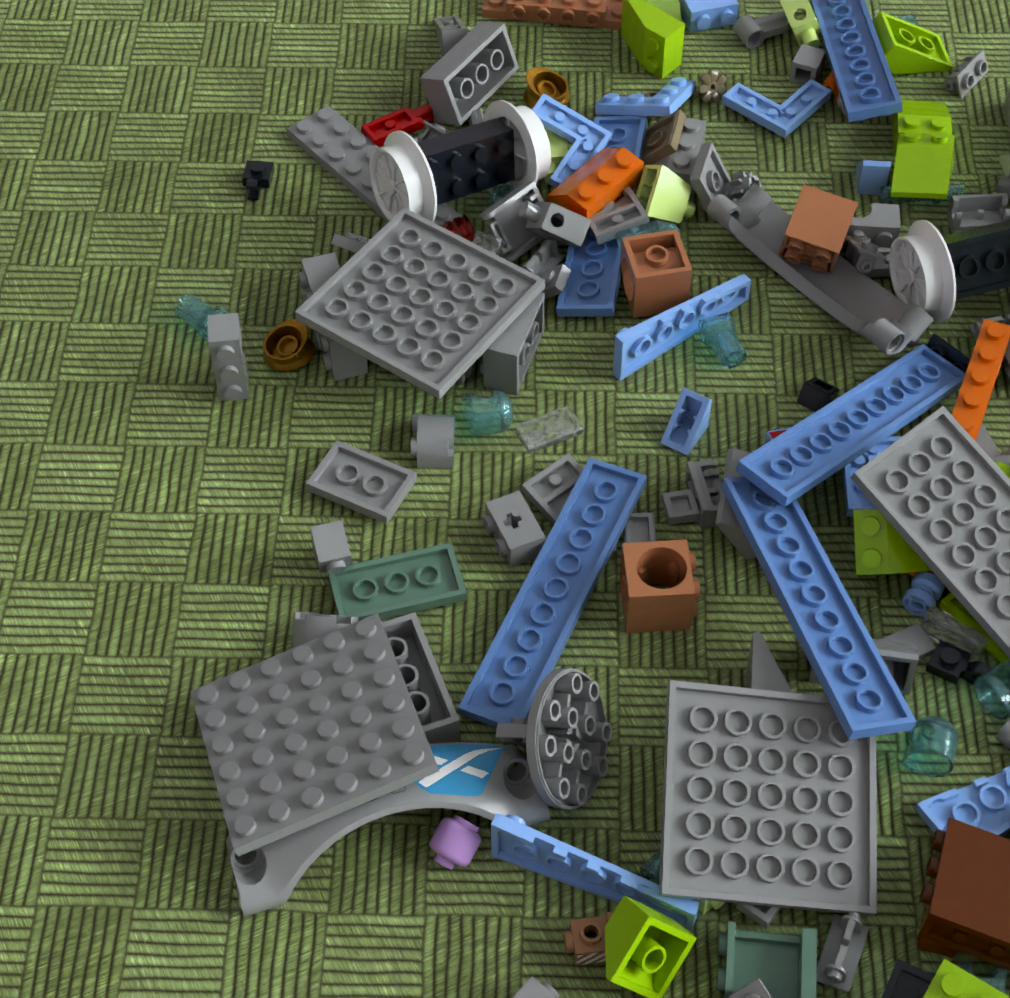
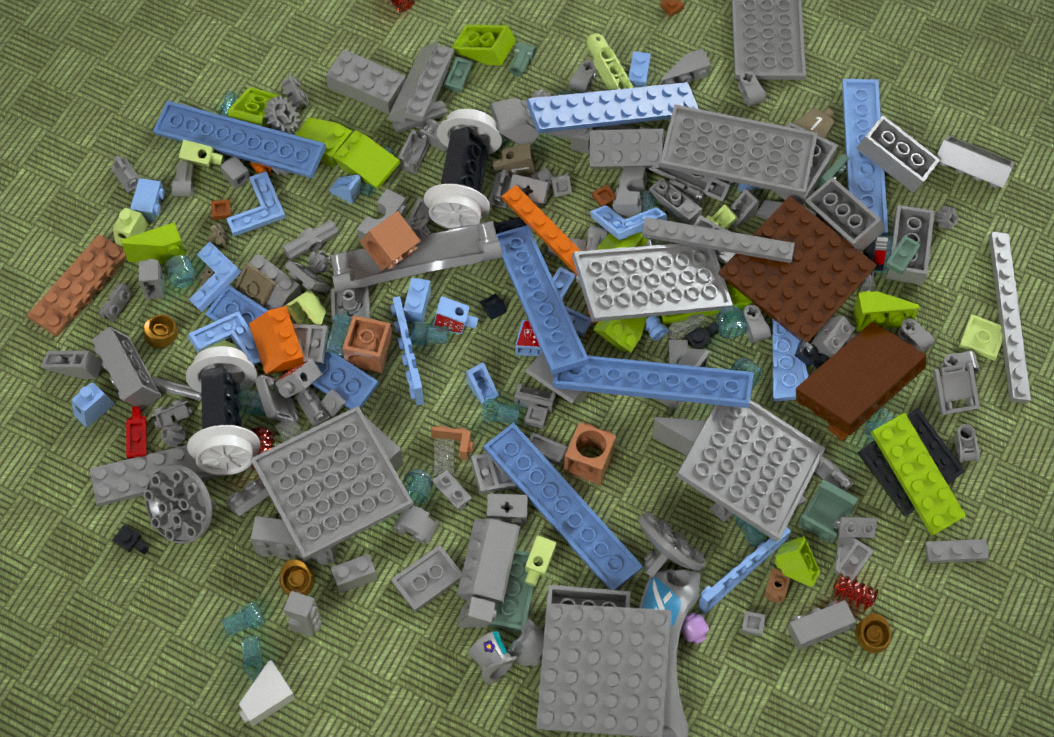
camera: 65 degrees left, 10 degrees up
(113, 379) = (265, 695): none -> white slope
(148, 349) = (252, 656): none -> clear light blue piece
(274, 594) = (491, 657): none -> light grey hat
(323, 190) = (178, 503): none -> light grey bracket
(324, 398) = (354, 573): none -> light grey brick
(406, 65) = (90, 404): none -> light blue torso
(417, 529) = (488, 560): none -> light grey slope
(448, 585) = (541, 552): none -> yellowish green torso
(503, 453) = (452, 490): none -> light grey hinge
(509, 929) = (753, 623): none -> light grey plate
(556, 39) = (118, 300): none -> light grey hinge
(589, 439) = (457, 434): none -> nougat bracket
(603, 48) = (151, 279): none -> light grey brick
(634, 71) = (180, 271): none -> clear light blue helmet
(658, 461) = (501, 413): none -> clear light blue piece
(703, 239) = (351, 302): none -> light grey plate
(748, 75) = (221, 209): none -> dark orange plate
(762, 305) = (417, 300): none -> light blue brick
(764, 346) = (454, 315): none -> light blue torso
(769, 169) = (310, 240): none -> light grey piece
(909, 65) = (281, 115): none -> light grey gear

